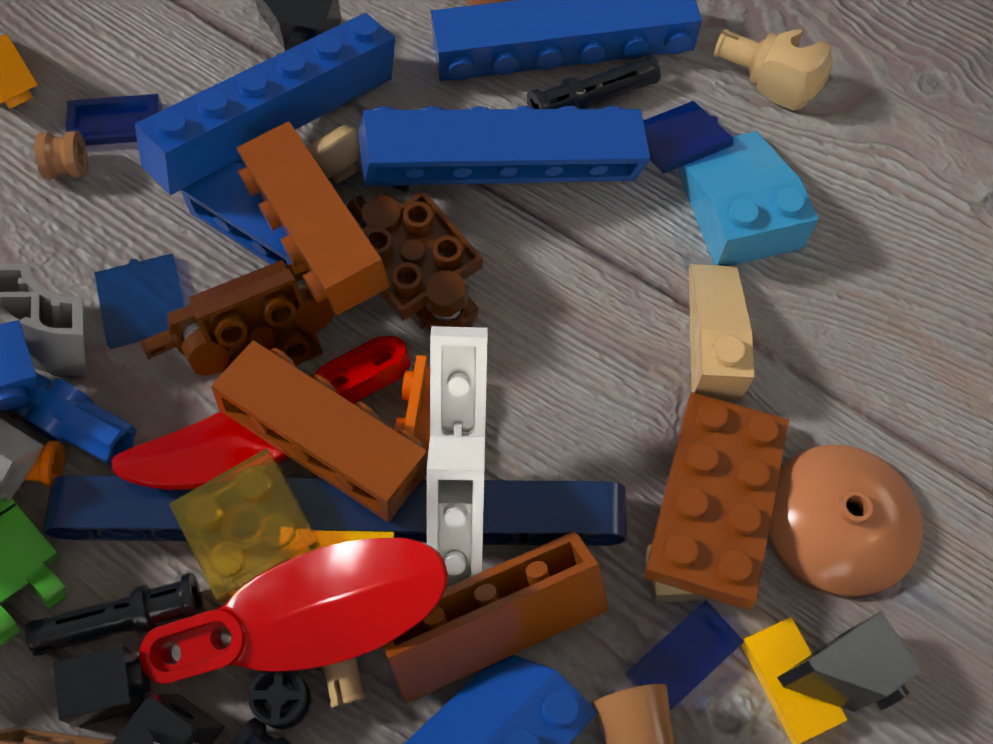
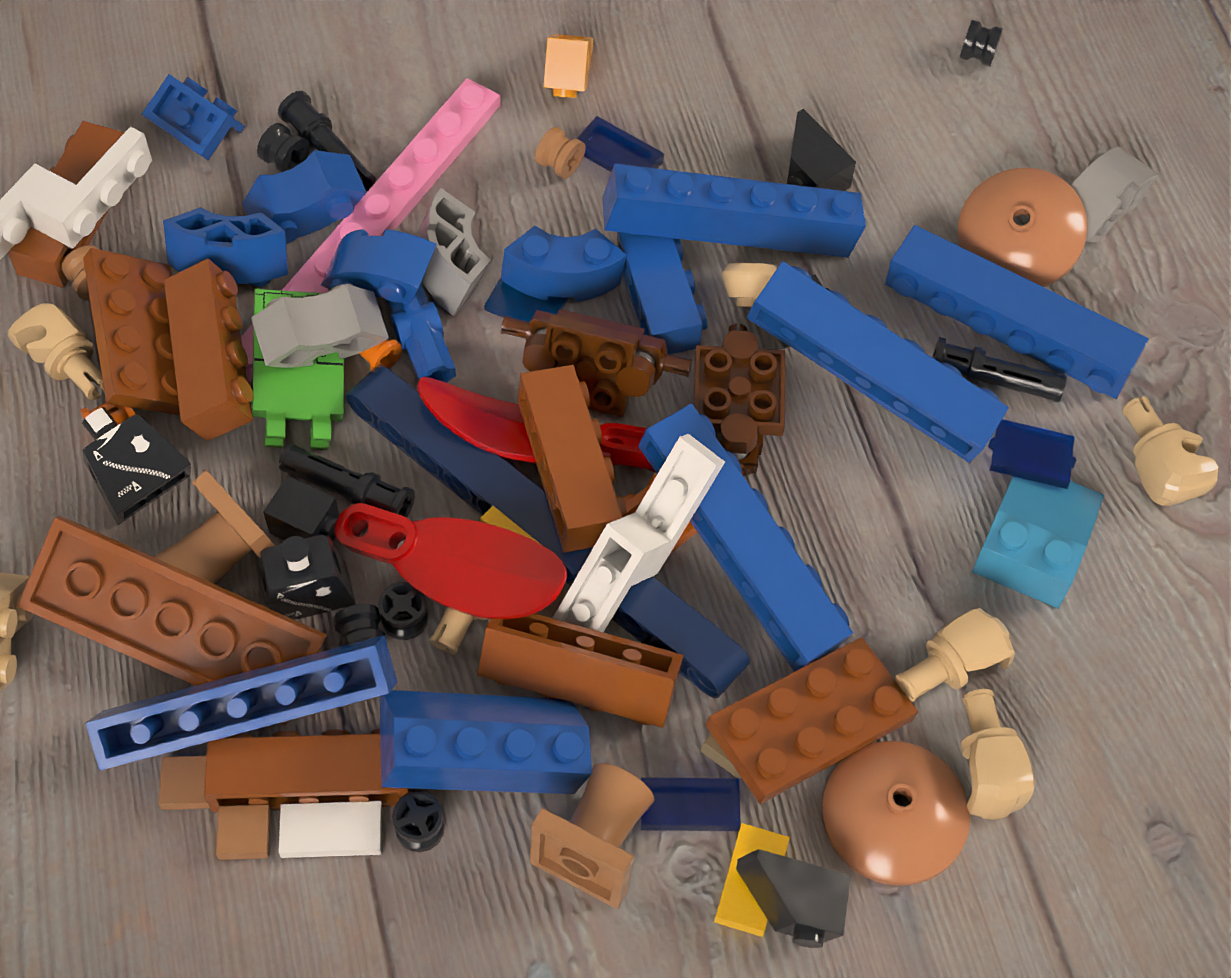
camera: 40 degrees right, 5 degrees down
(154, 257) = (563, 266): none -> blue brick
(243, 524) = (470, 479): clear yellow plate -> none
(314, 219) = (683, 313): dark orange brick -> none
(546, 385) = (754, 549): none -> blue brick
(719, 333) = (921, 611): tan slope -> none
(782, 336) = (962, 645): none -> tan piece
(892, 407) = (997, 761): none -> tan piece

